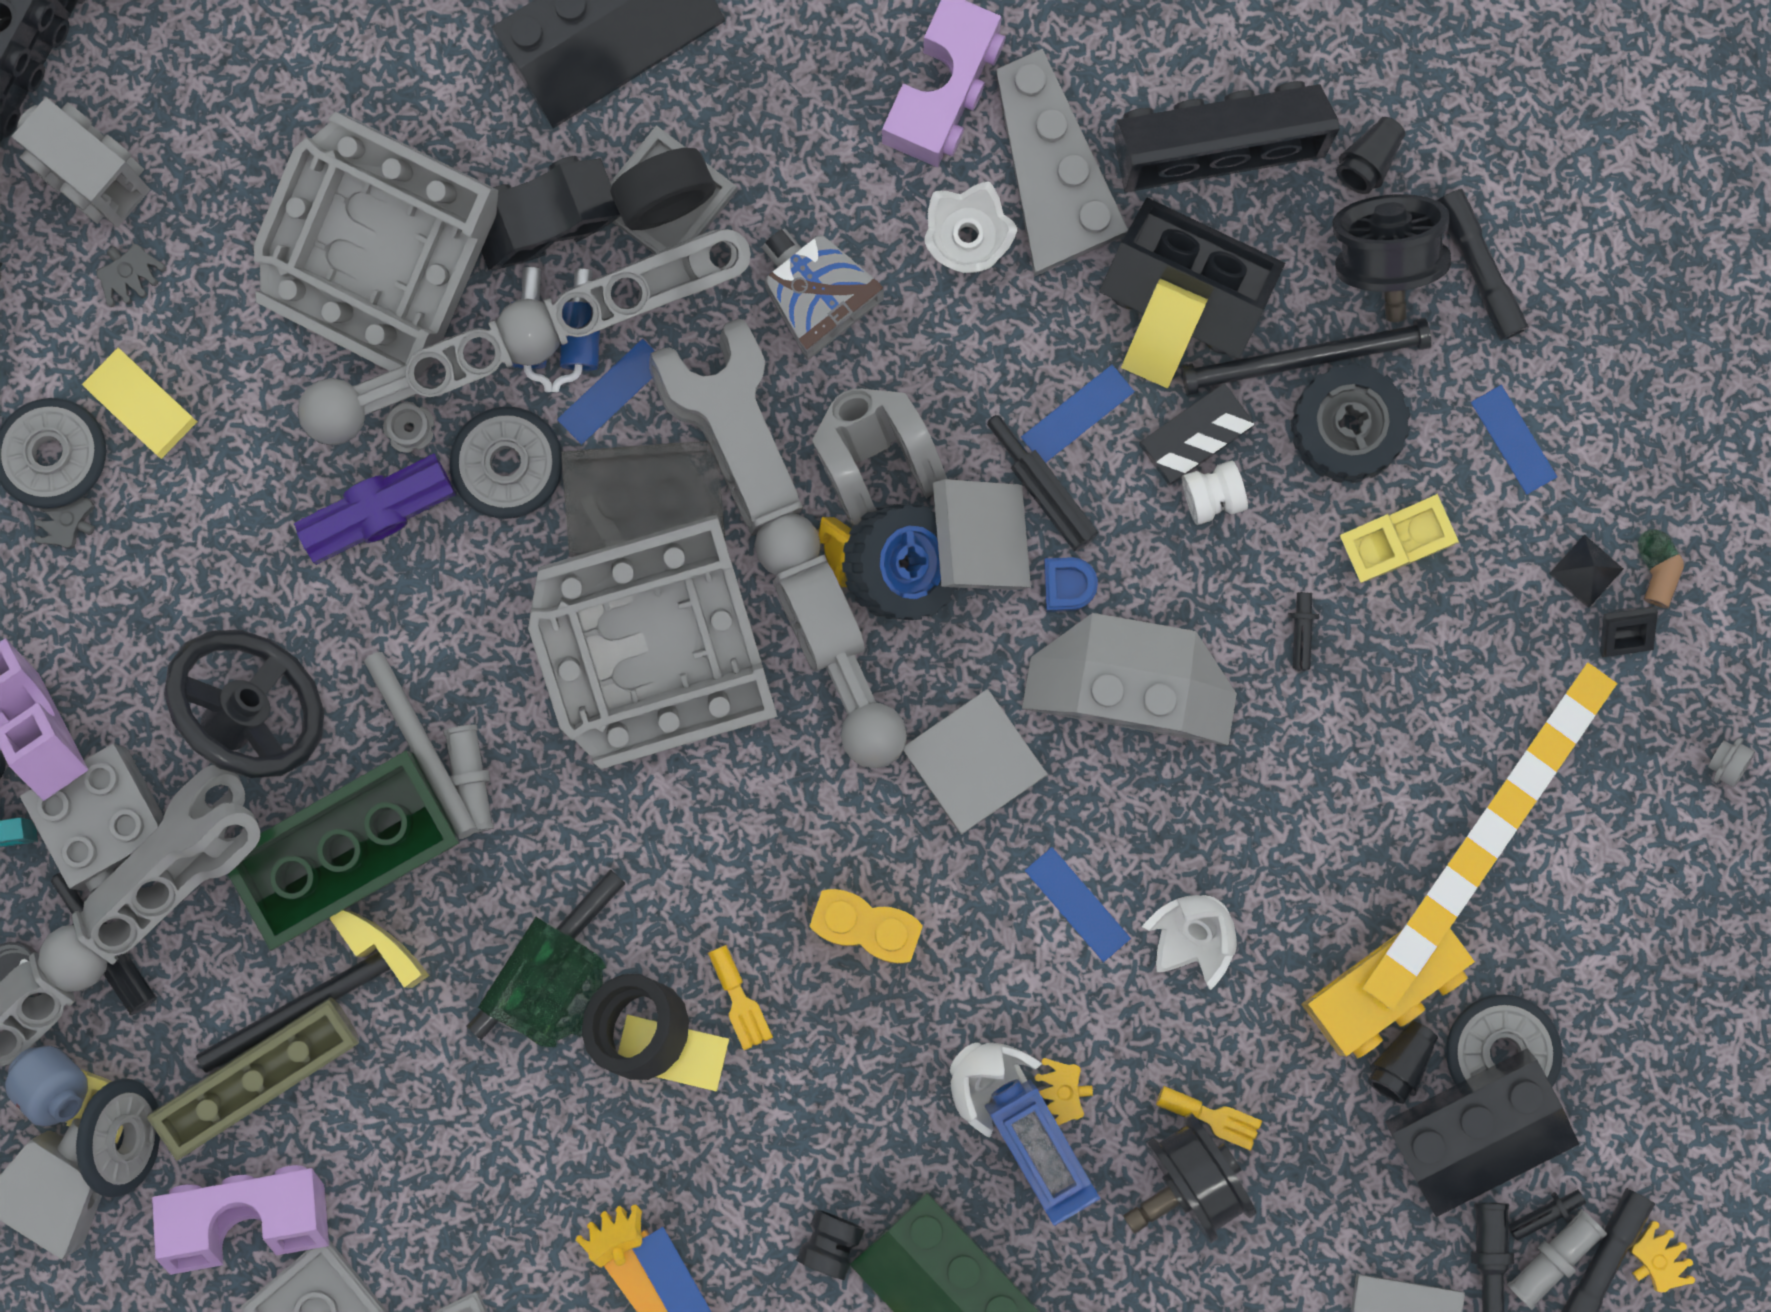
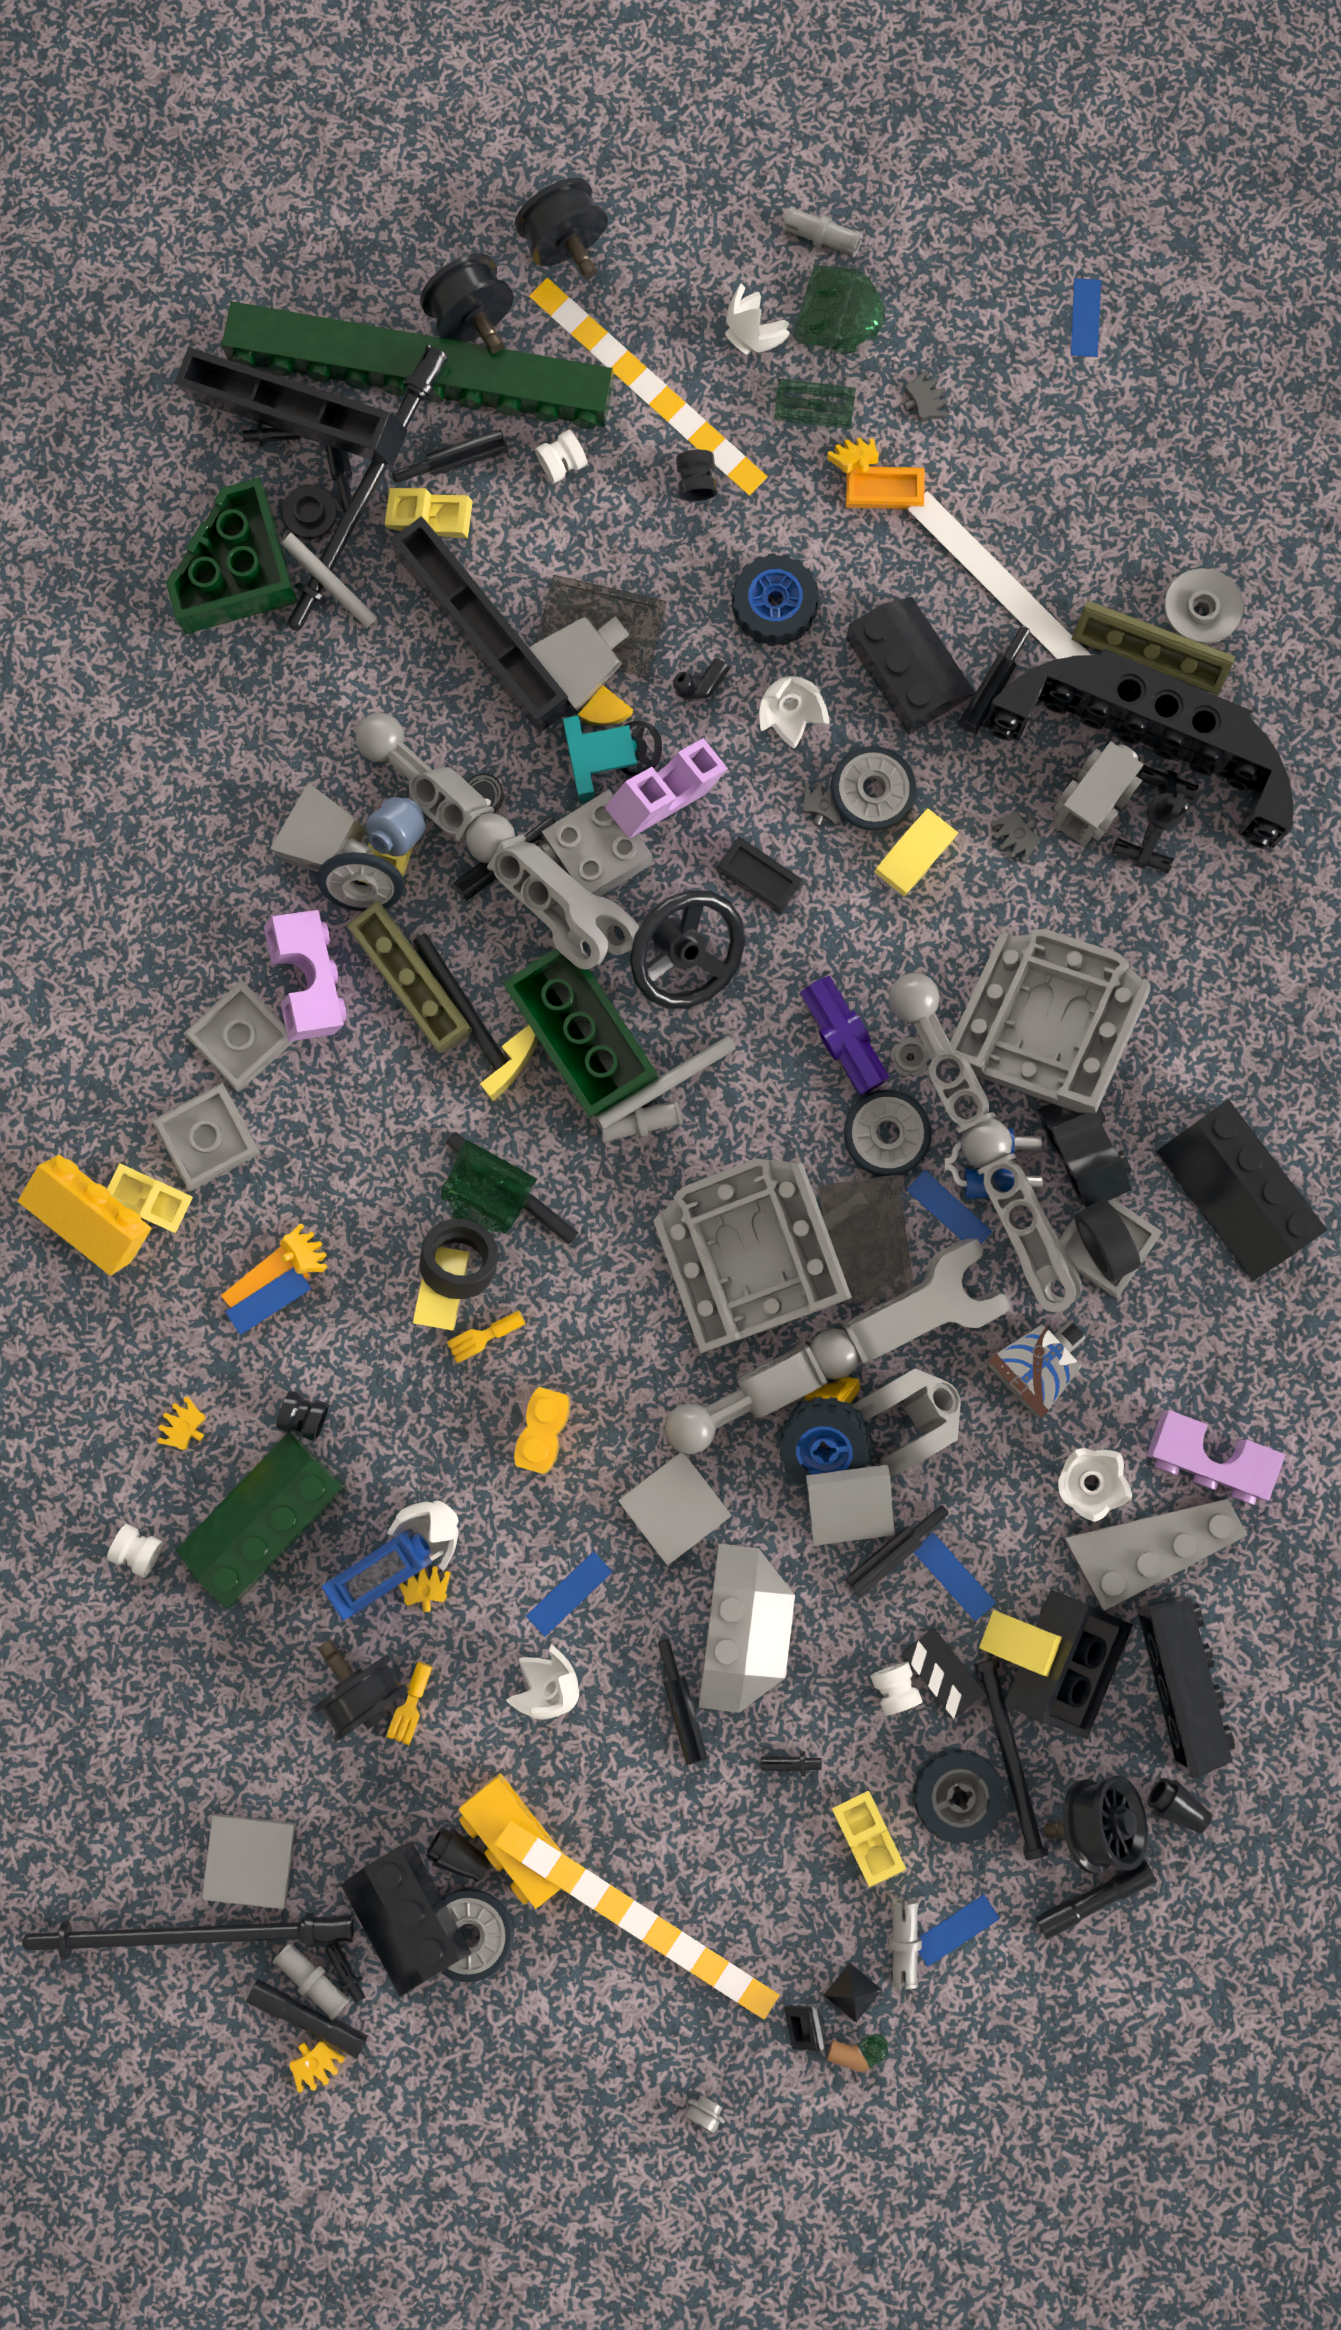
camera: 90 degrees right, 0 degrees up
(115, 80) = (1163, 814): none -> black axle
(153, 608) = (759, 875): none -> black tile
(1068, 584) = (818, 1575): blue tile -> none
(1228, 765) = (682, 1708): none -> black axle
(1529, 501) = (904, 1943): none -> light grey pin

